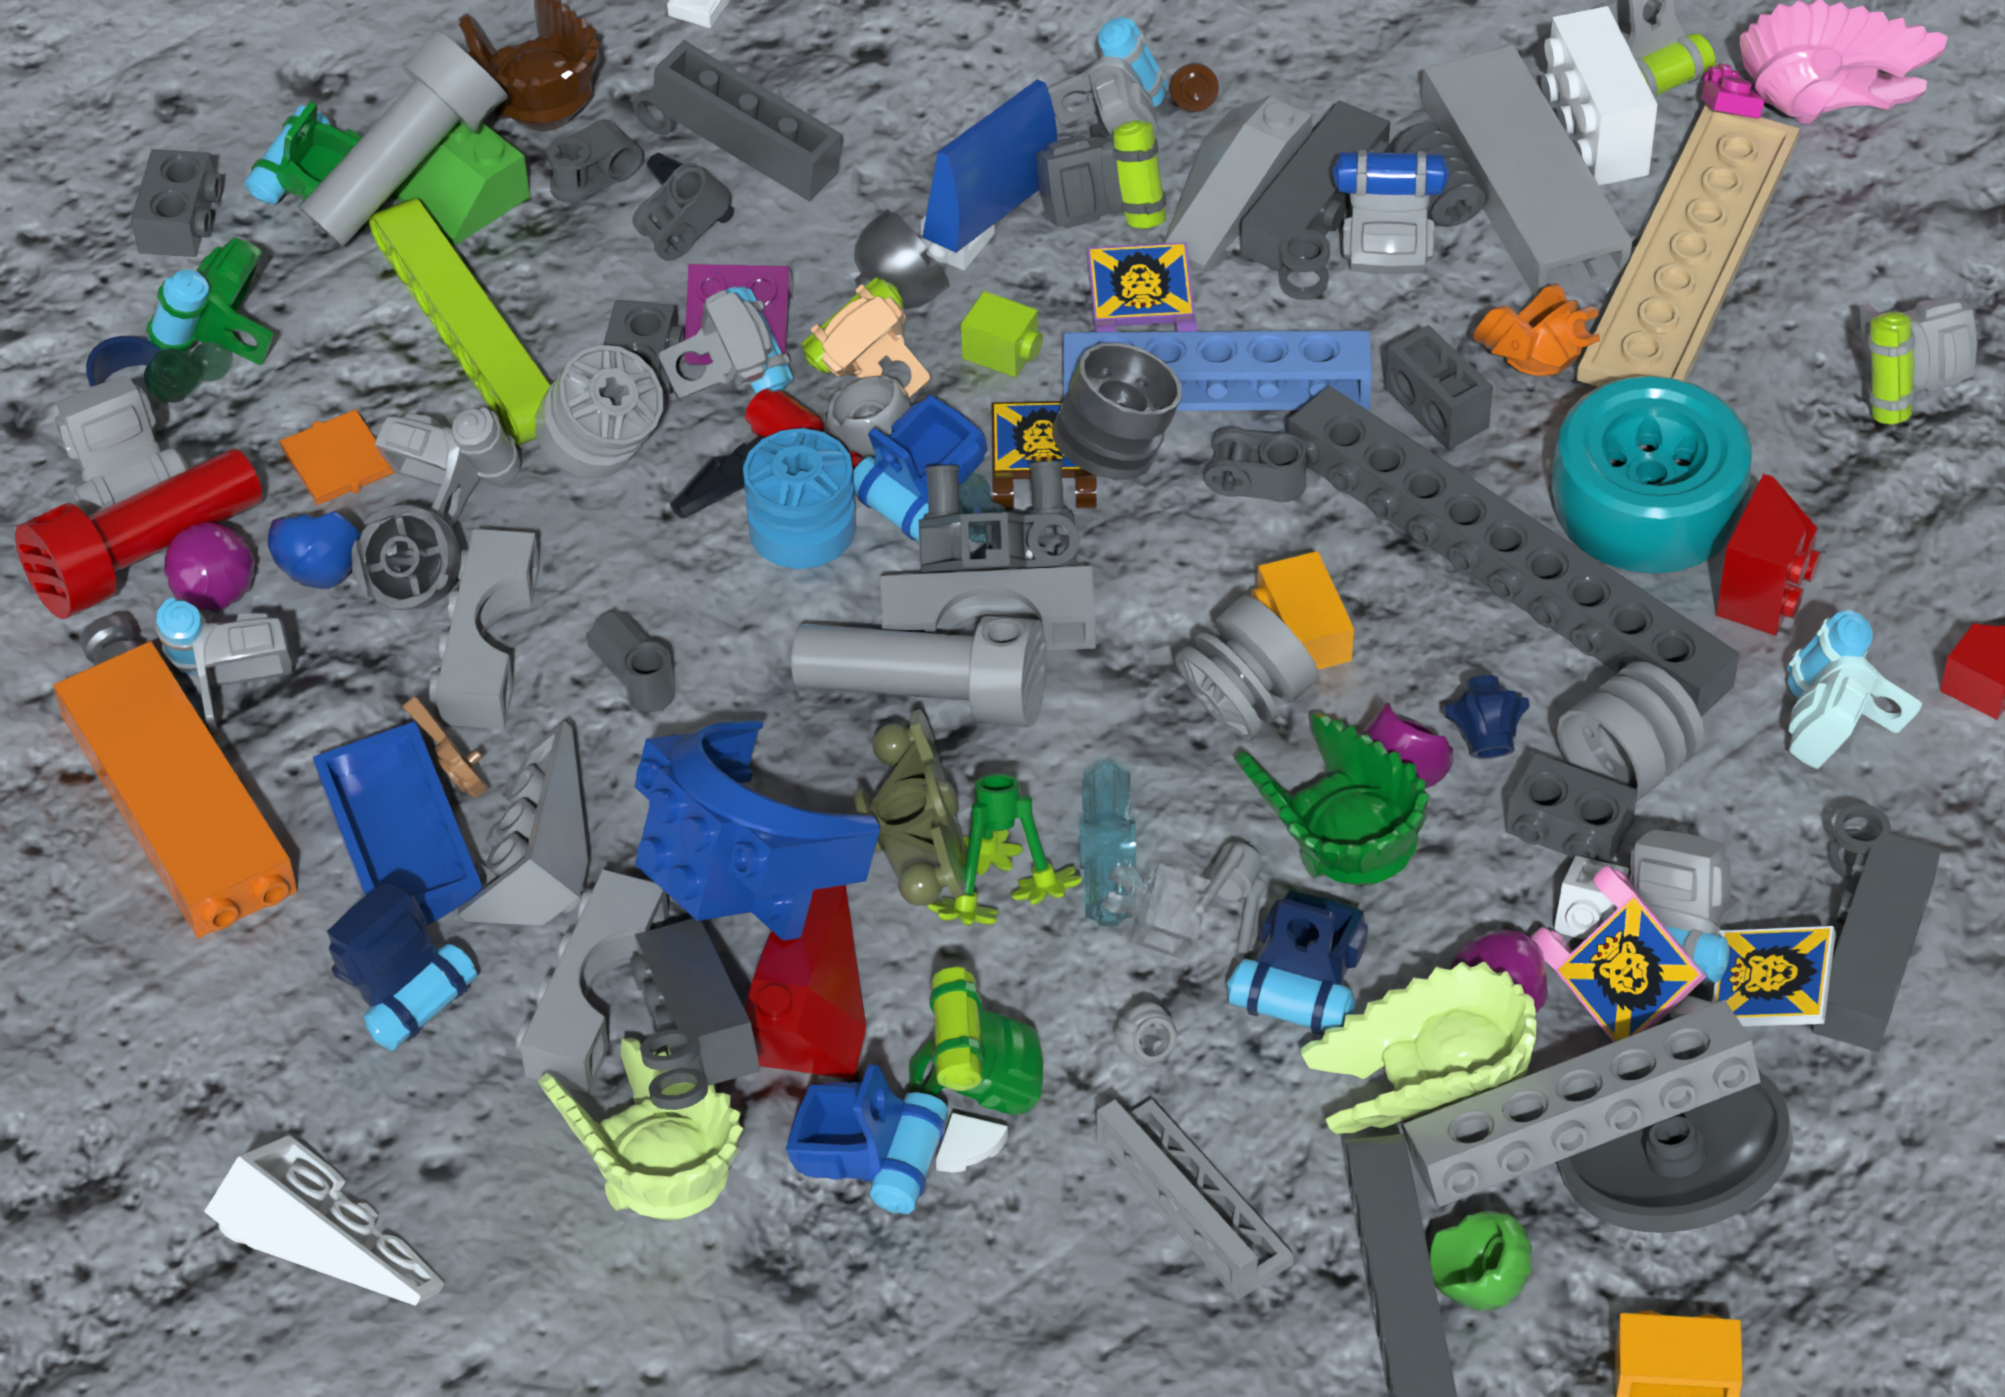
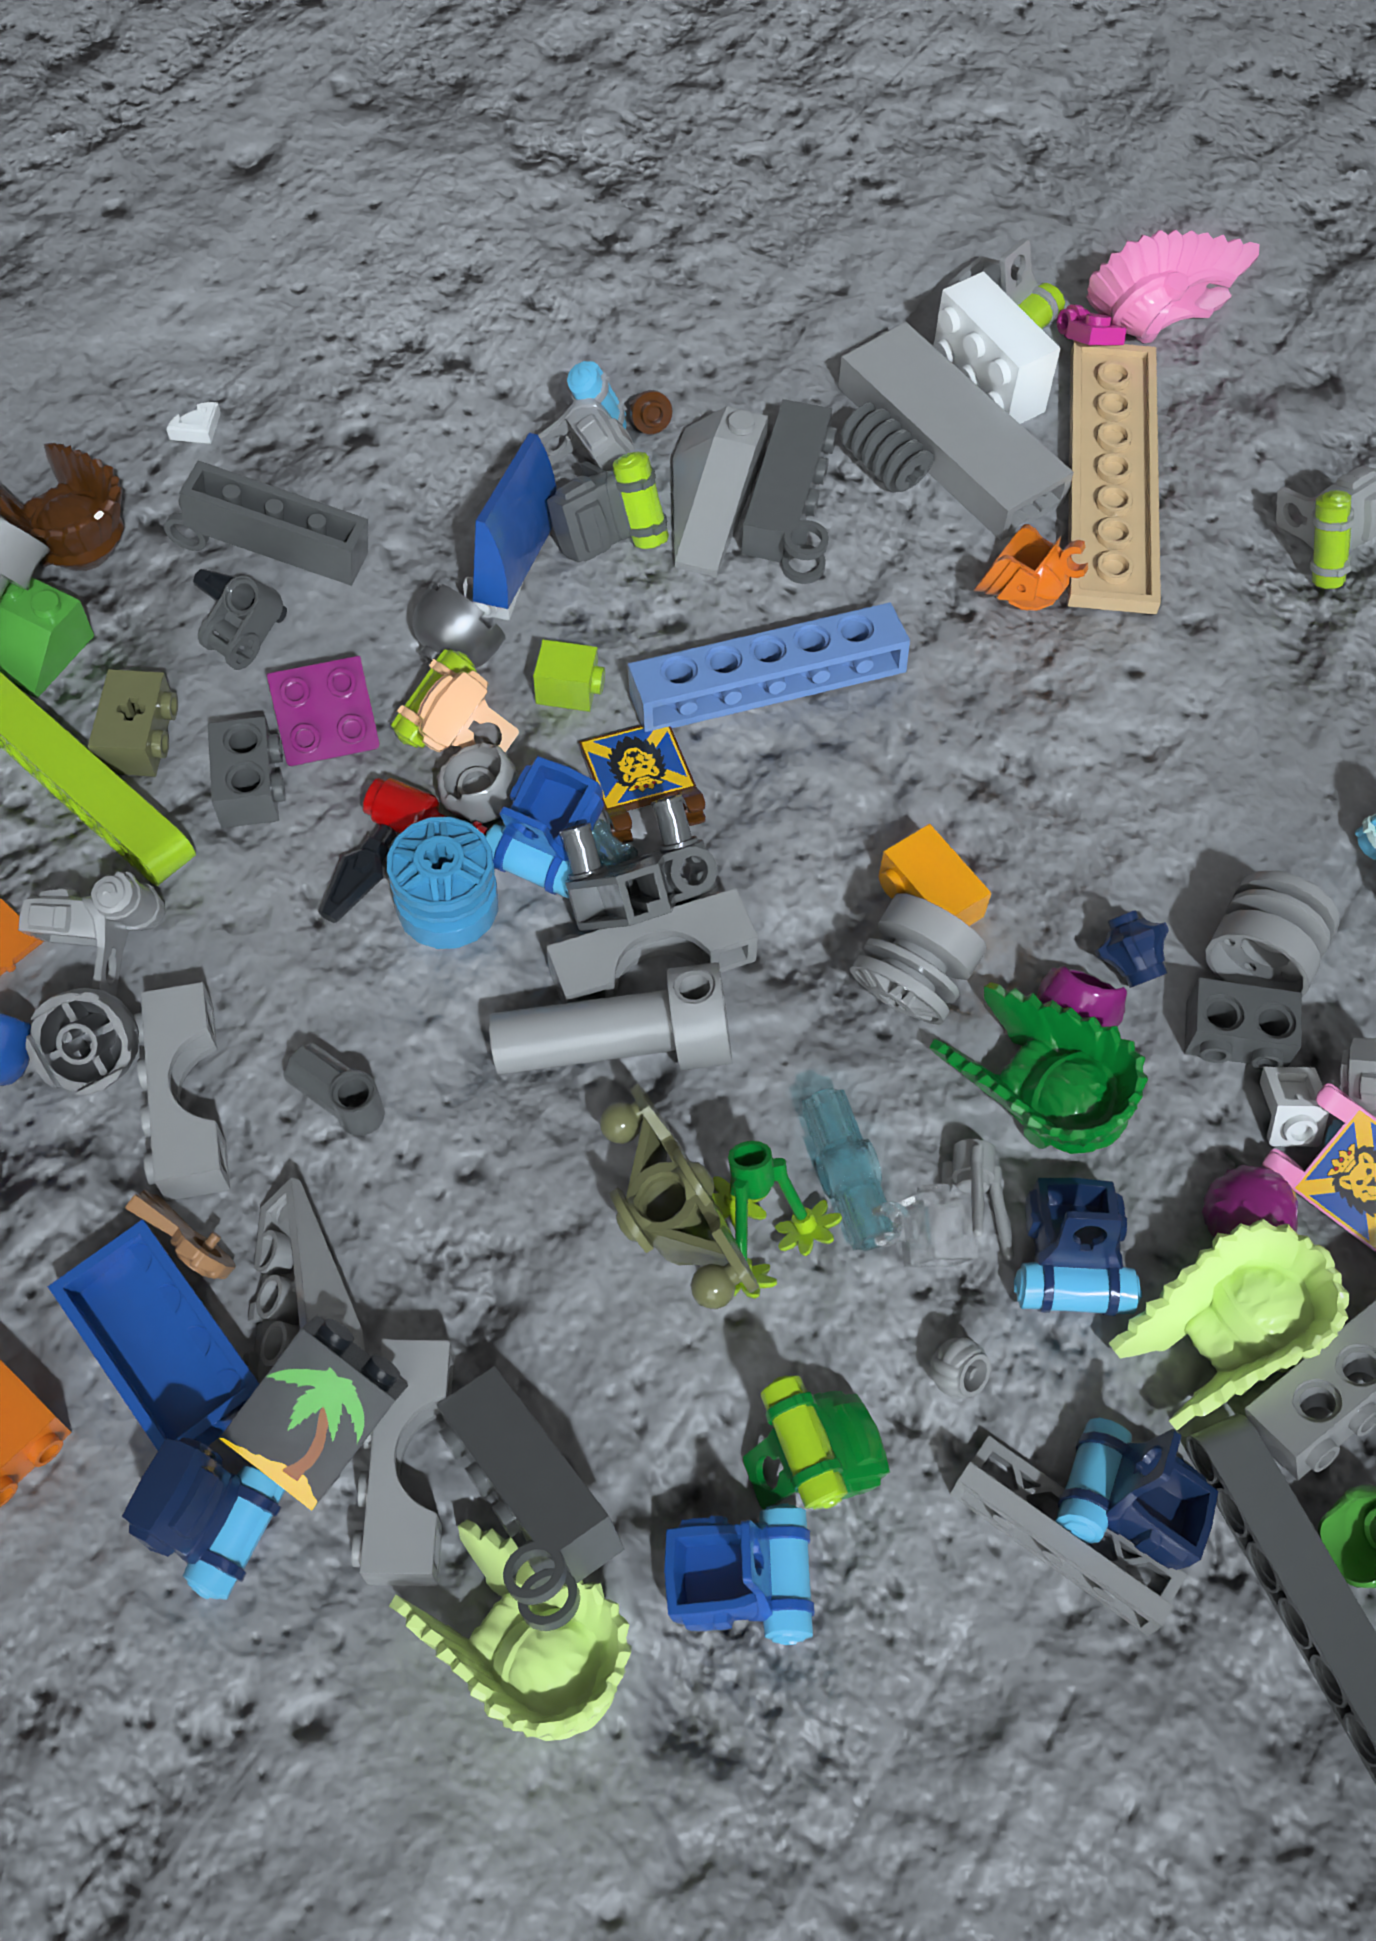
camera: 20 degrees left, 10 degrees up
(293, 1208) = (200, 1854): white wedge -> none
(520, 902) = (314, 1410): none -> panel
(543, 285) = (133, 722): none -> olive brick
(593, 156) = (145, 585): dark grey piece -> none
(599, 411) = (228, 841): light grey wheel -> none
(732, 848) = (500, 1296): blue piece -> none
(737, 344) = (336, 742): light grey piece -> none
(809, 995) = (623, 1412): red wedge -> none
(969, 1142) = (833, 1536): white tile -> none
(1116, 411) = (704, 729): flat silver wheel -> none
(1141, 286) = (672, 603): flag -> none
(1261, 465) = (836, 748): dark grey piece -> none
(1268, 1169) = (1138, 1494): none -> dark blue piece
(1389, 208) = (865, 486): light grey piece -> none
(1439, 387) = (967, 640): dark grey brick -> none
(1507, 548) = (1049, 766): dark grey brick -> none
(1651, 509) = (1161, 708): teal wheel -> none
(1768, 560) = (1309, 739): red slope -> none

